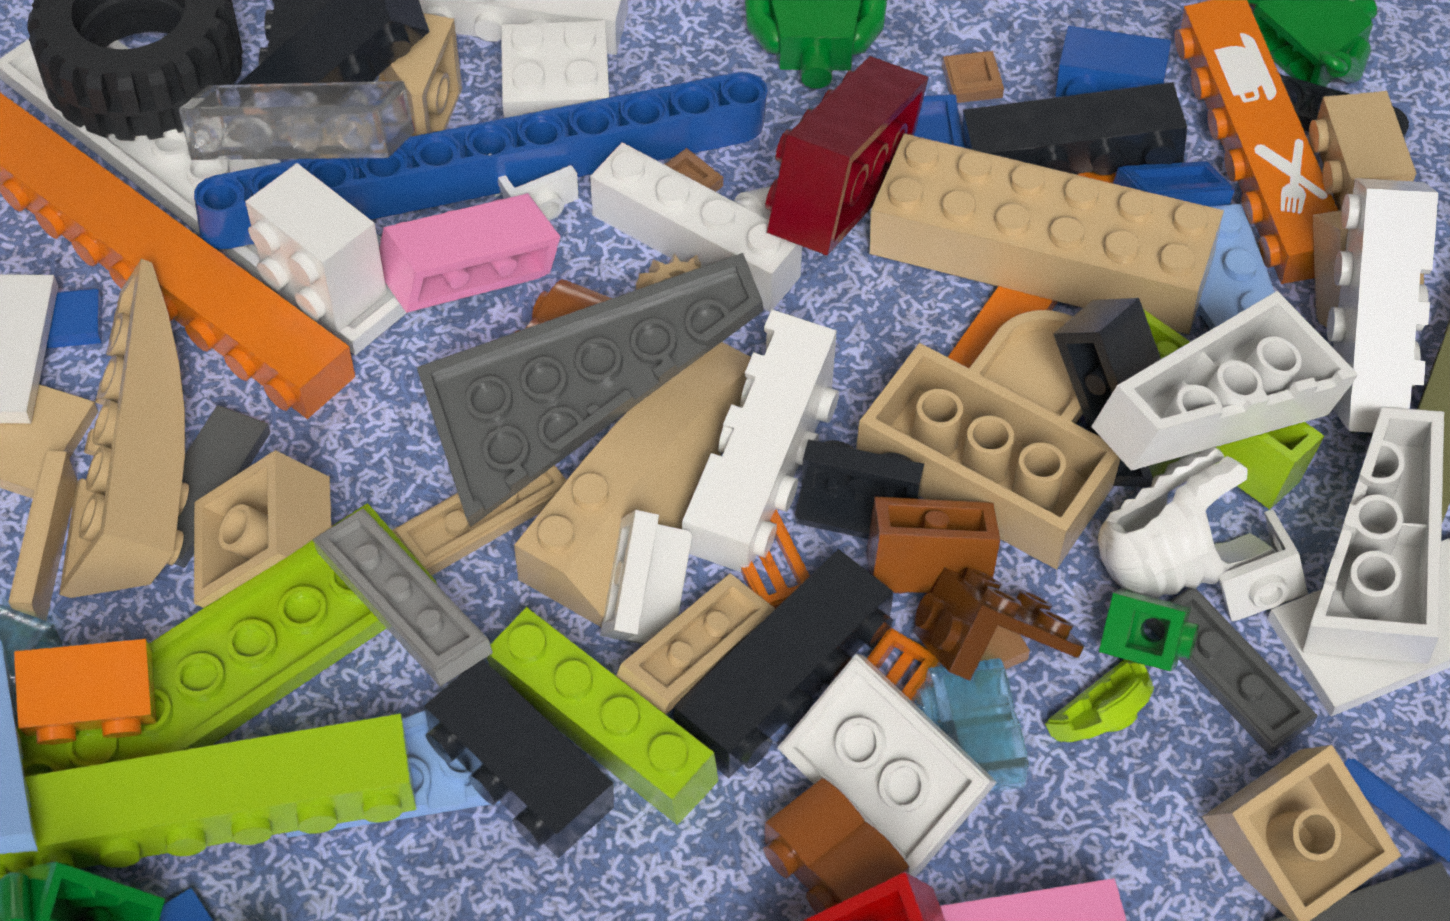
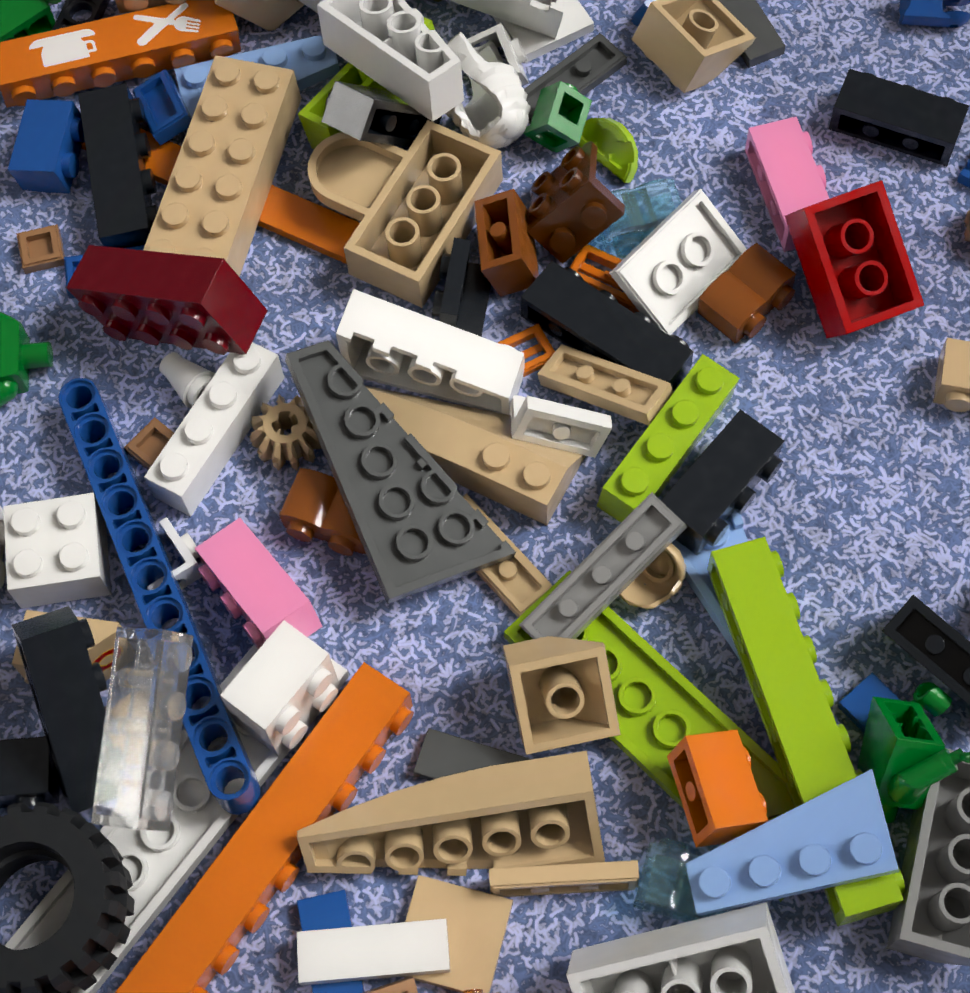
camera: 90 degrees left, 10 degrees up
(400, 680) = (662, 580): none -> tan hair

